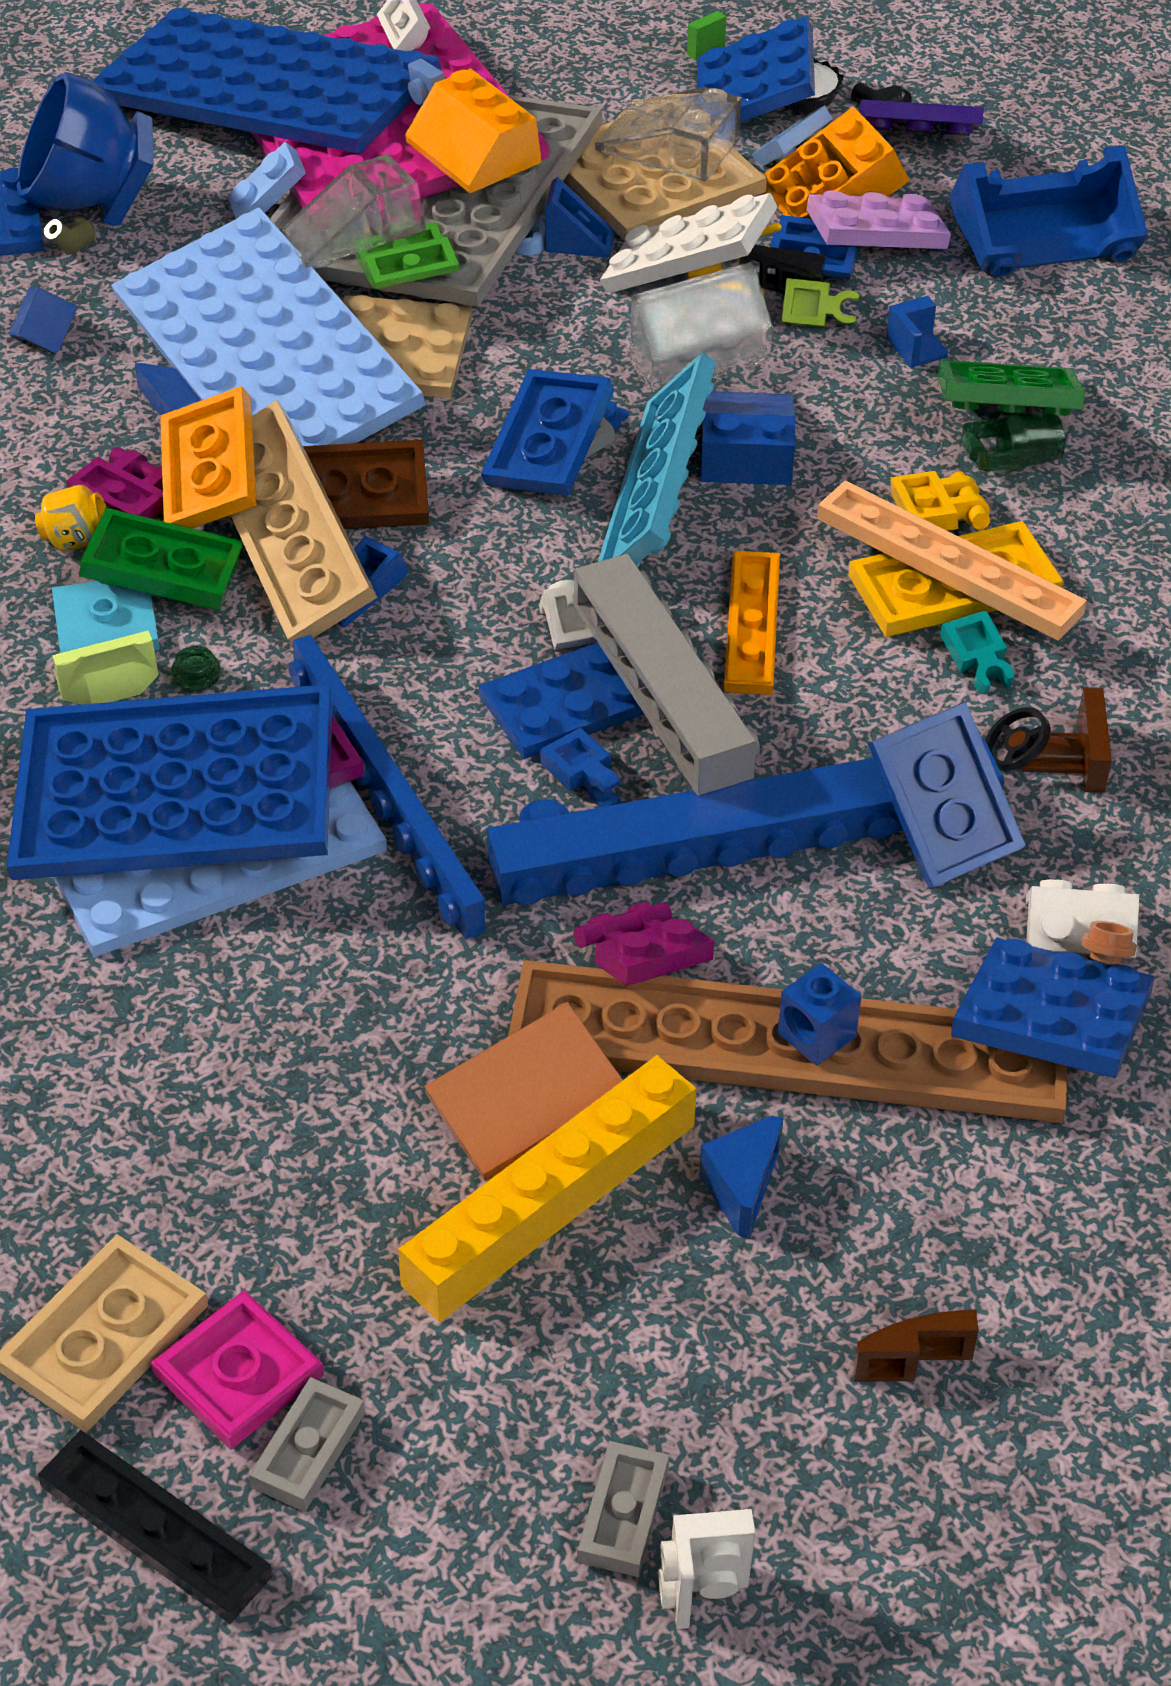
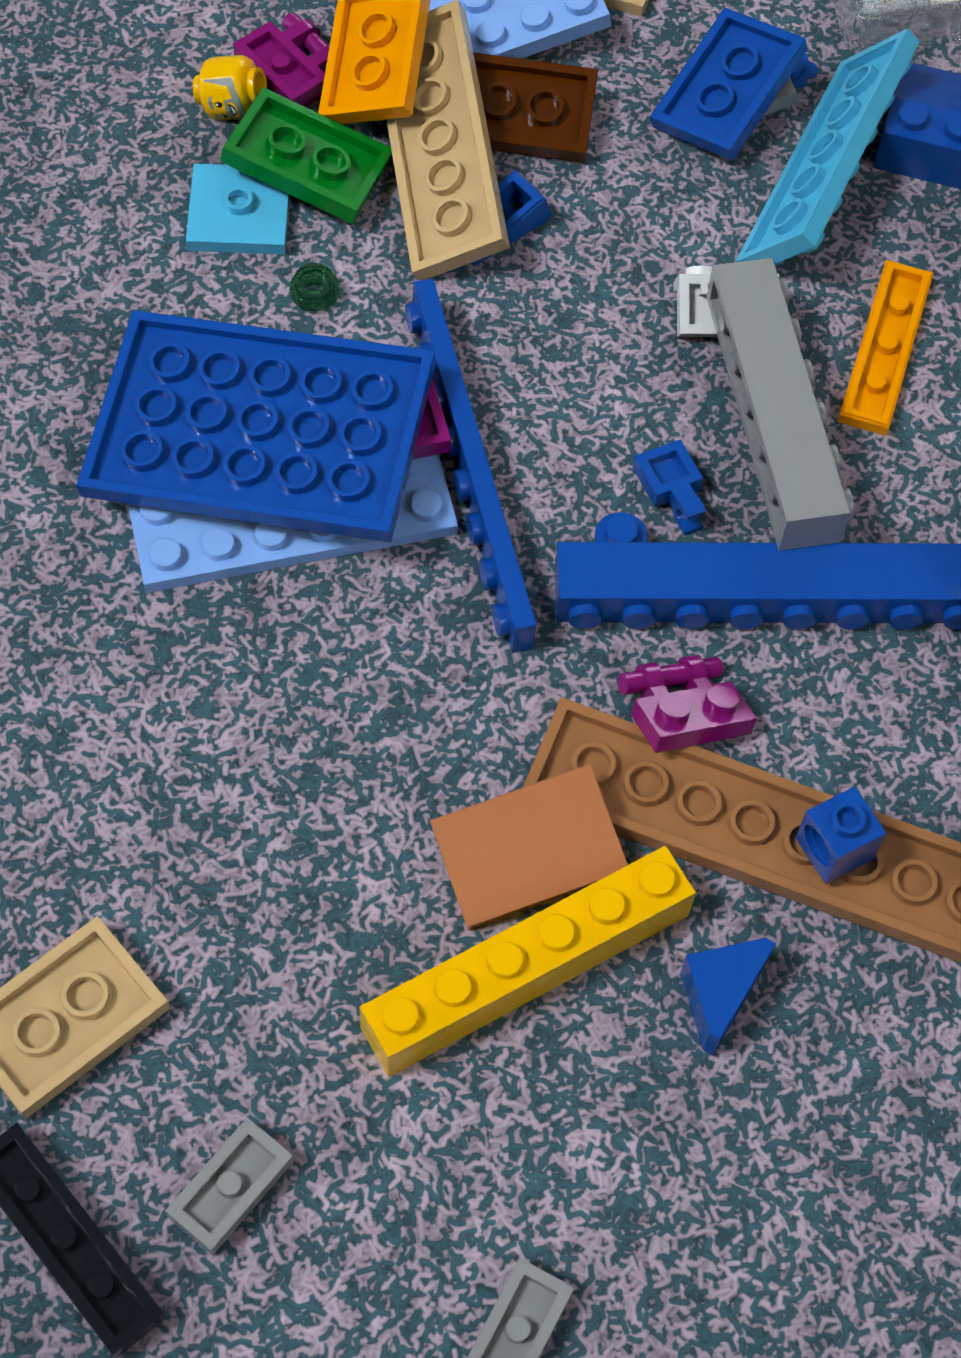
camera: 10 degrees right, 15 degrees up
(107, 670) = (226, 272): yellowish green slope -> none
(237, 1369) = (181, 1087): dark pink plate -> none
(558, 698) = (666, 398): blue plate -> none
(895, 1350) = (830, 1224): reddish brown slope -> none

